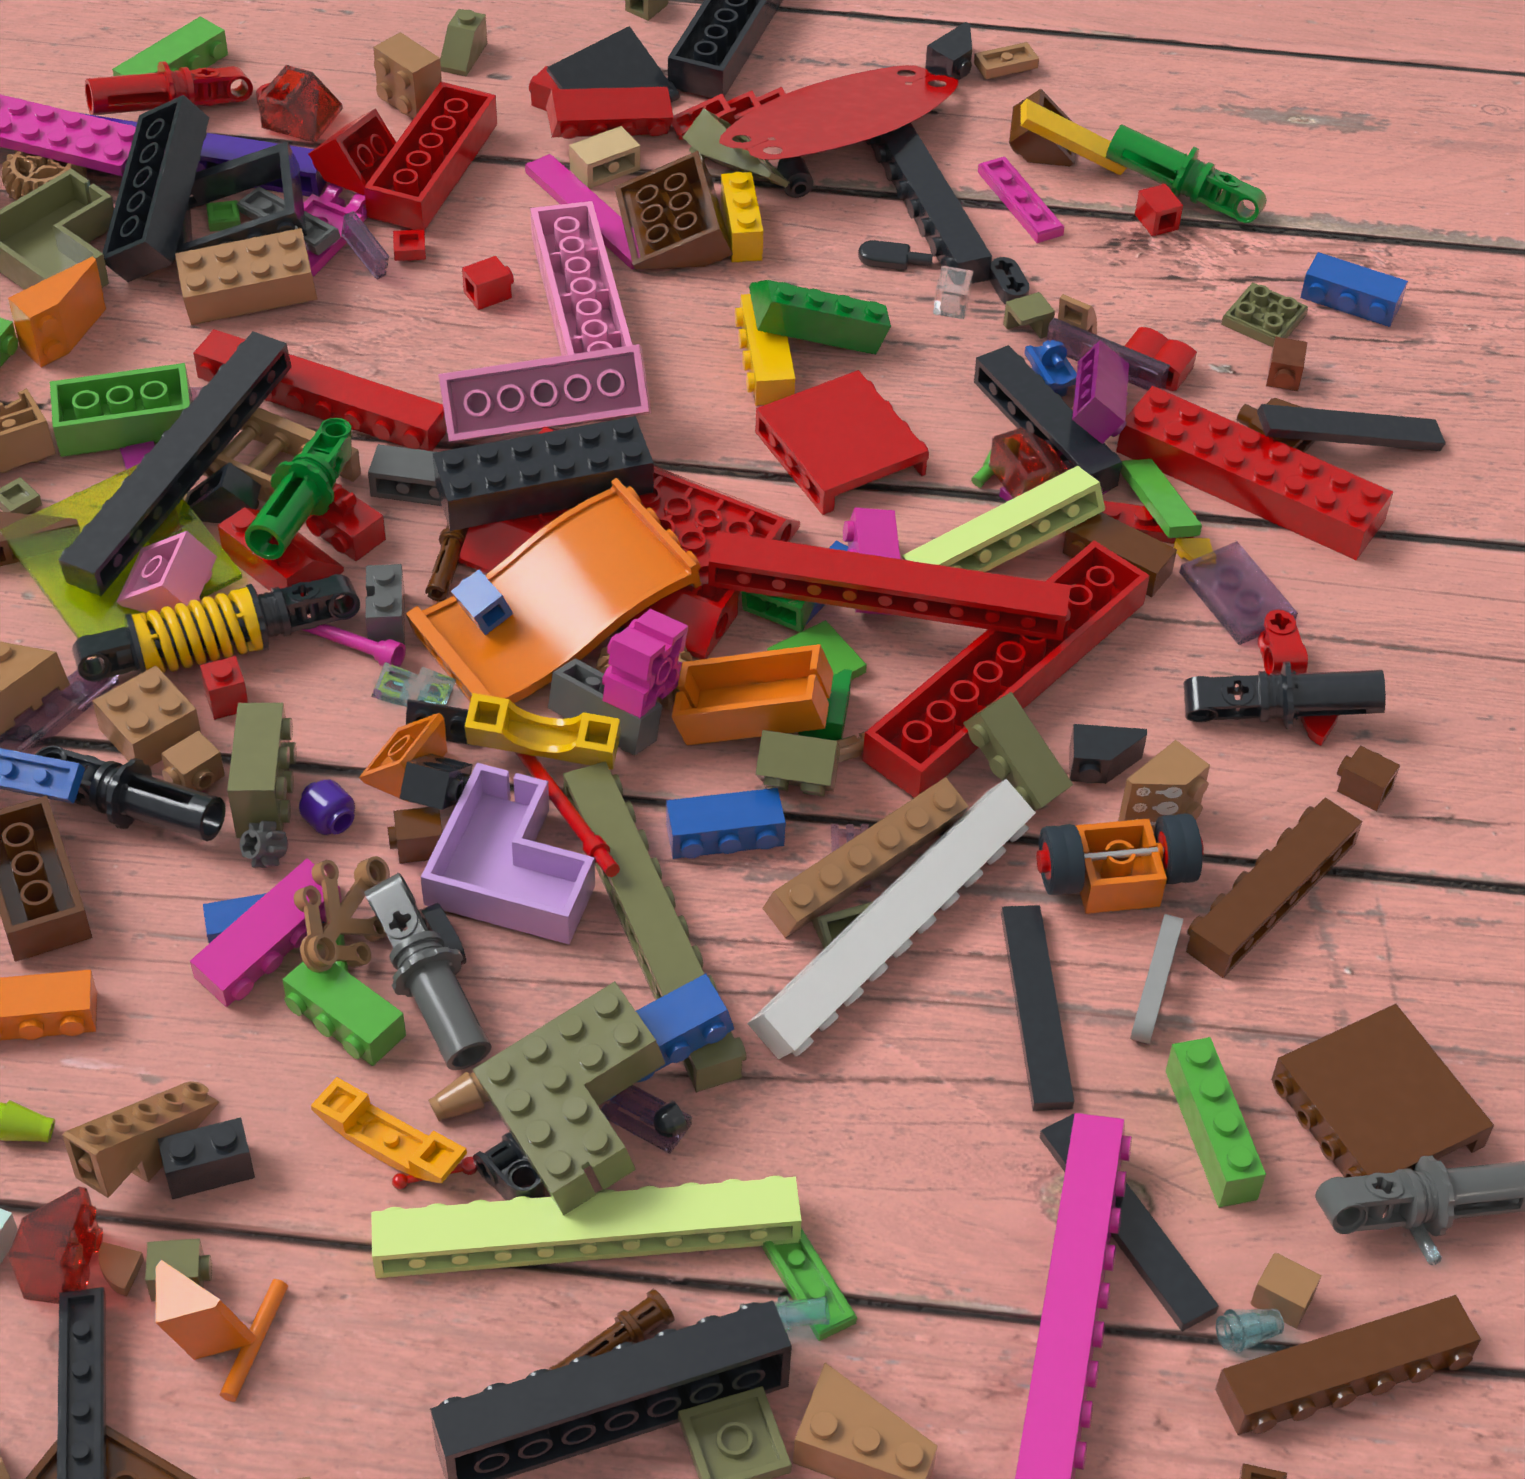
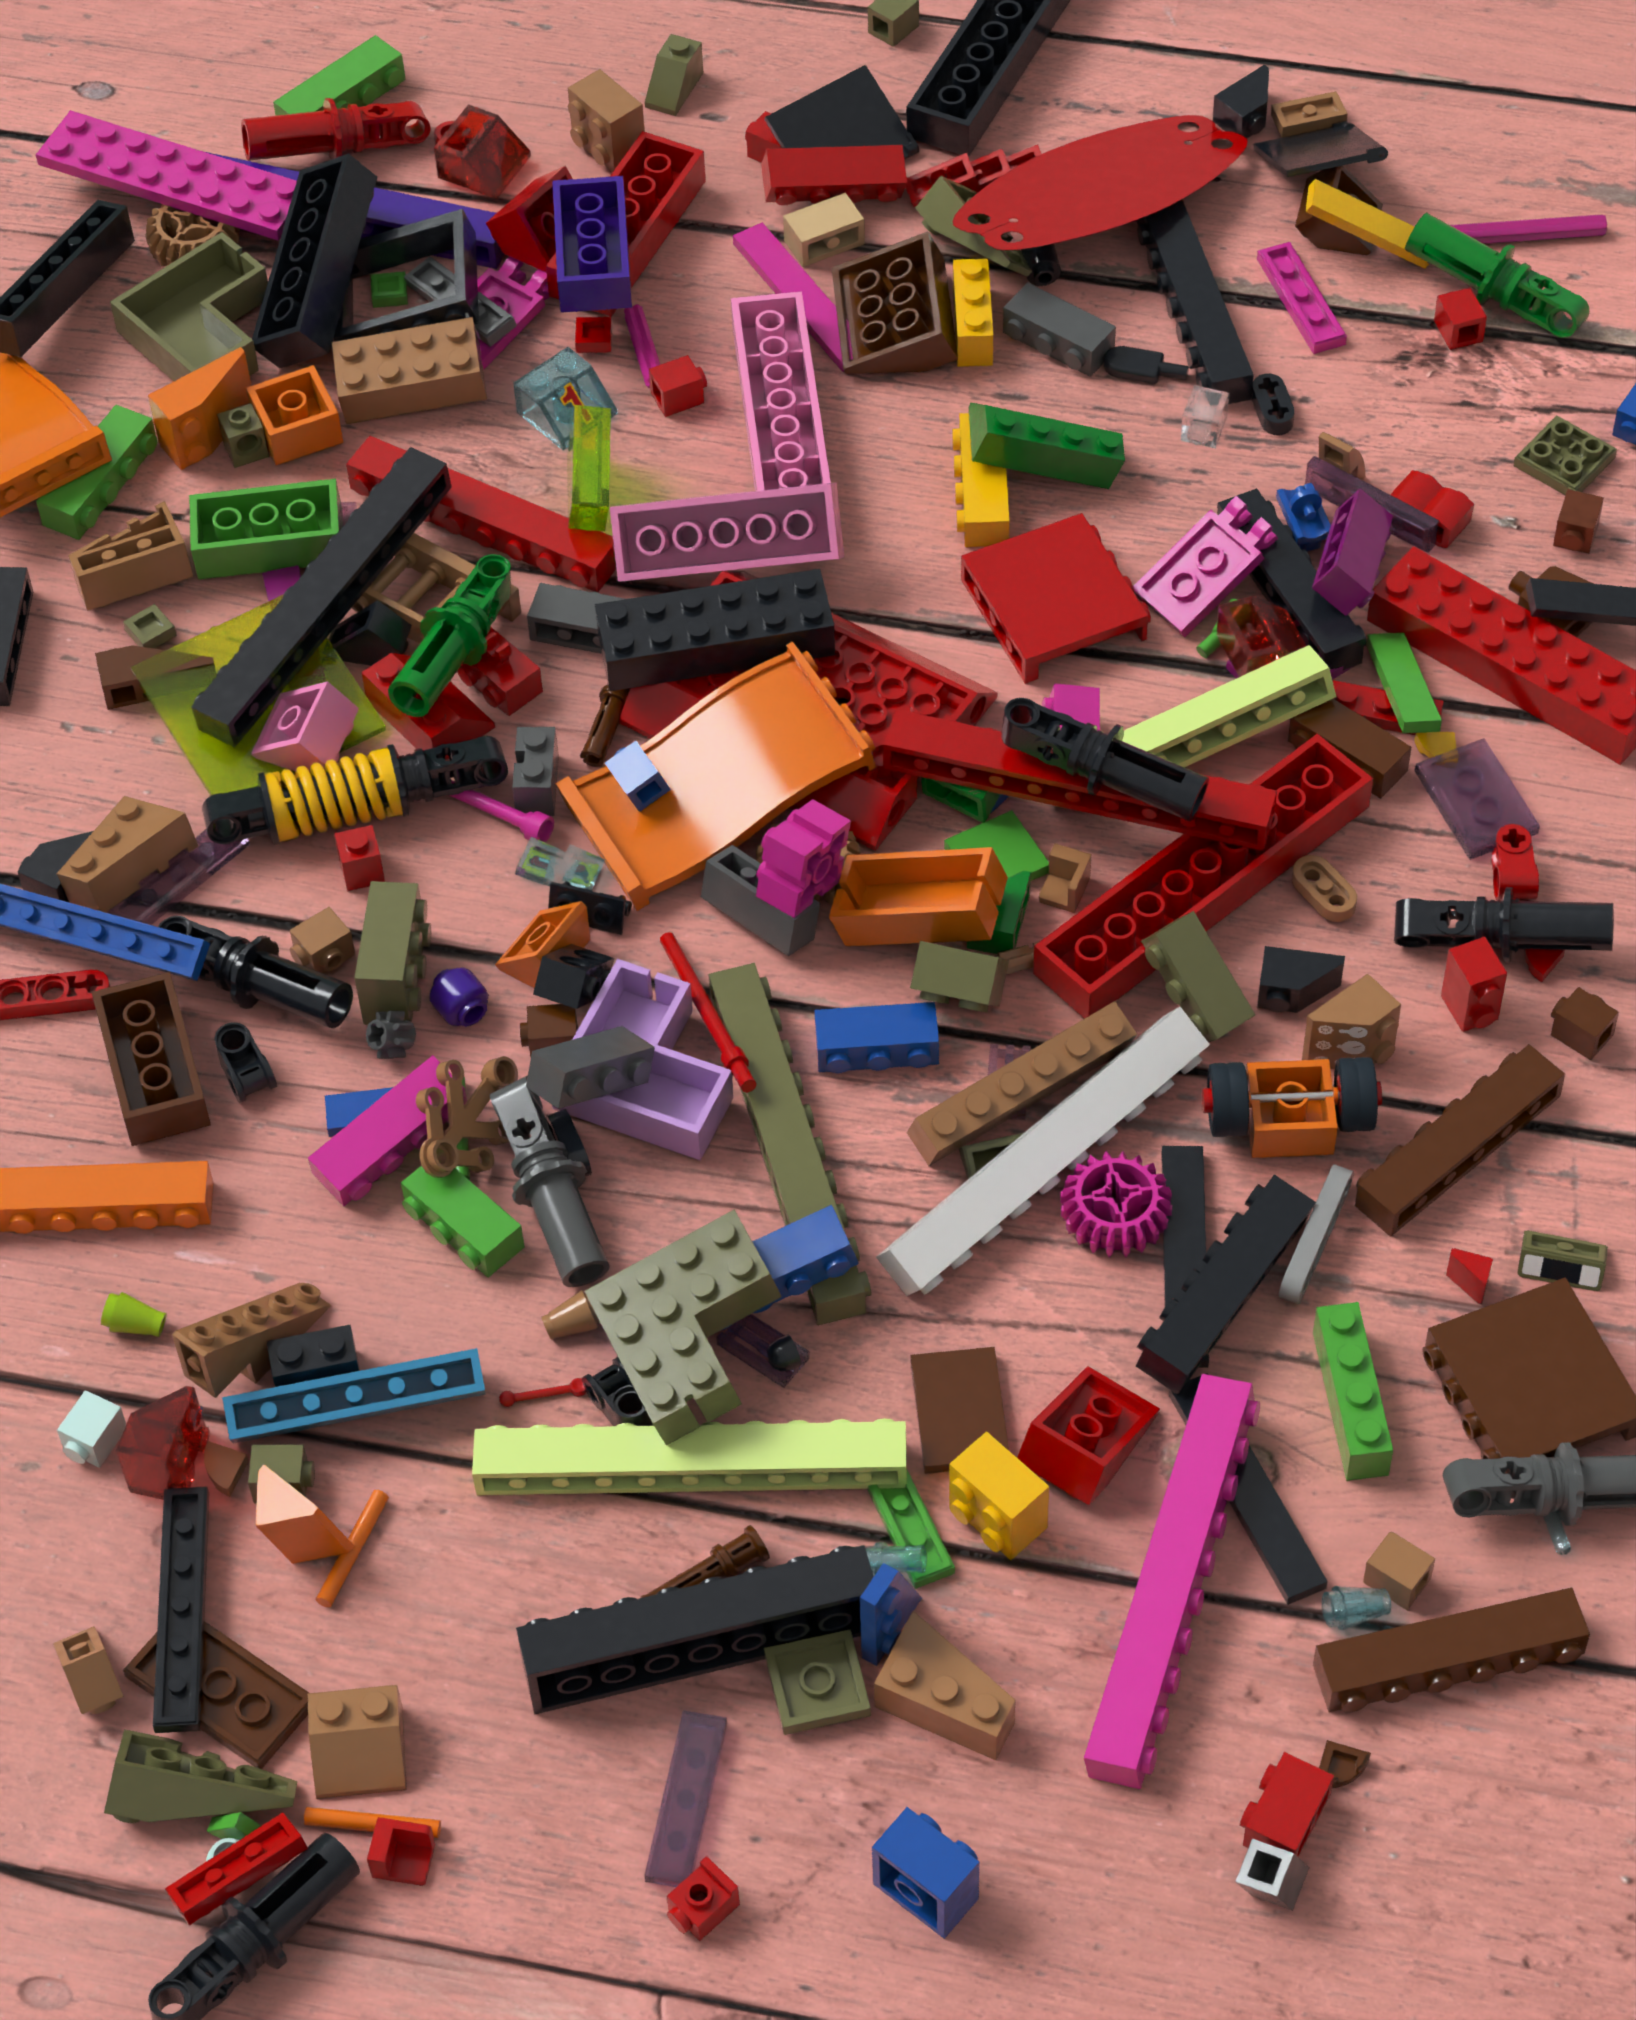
camera: 10 degrees right, 5 degrees up
(97, 334) = (243, 435): none -> olive brick
(121, 876) = (246, 1066): none -> black piece
(144, 315) = (296, 414): none -> orange brick
(146, 716) = (276, 887): medium nougat brick -> none
(247, 1187) = (353, 1396): none -> dark azure brick
(365, 245) = (539, 329): clear purple tile -> none
(386, 296) = (553, 388): none -> clear light blue slope
(386, 1137) = (500, 1355): light orange slope -> none
(405, 165) = (591, 244): none -> dark purple brick
(415, 347) = (589, 468): none -> clear neon green slope
(452, 248) = (641, 340): none -> dark pink axle
(459, 860) = (590, 1067): none -> dark grey brick
(504, 726) = (654, 920): yellow arch -> none
(797, 1366) = (884, 1611): none -> blue wing
(817, 228) = (1058, 329): none -> dark grey brick
(843, 1164) = (956, 1403): none -> reddish brown tile
(882, 675) = (1066, 878): none -> medium nougat panel
(894, 1243) = (998, 1496): none -> yellow brick
(912, 561) = (1102, 758): none -> black piece
(960, 969) = (1097, 1216): none -> dark pink gear
(968, 1180) = (1086, 1434): none -> red slope
(972, 409) = (1205, 566): none -> tile
(1029, 310) = (1288, 444): olive panel -> none
(1033, 80) = (1321, 149): none -> black piece
(1080, 1031) = (1224, 1284): none -> black brick
(1120, 675) = (1327, 889): none -> medium nougat plate
(1218, 140) = (1536, 229): none -> dark pink axle
(1266, 747) = (1473, 984): none -> red brick
(1304, 1005) = (1470, 1272): none -> red slope
(1380, 988) = (1557, 1257): none -> olive slope

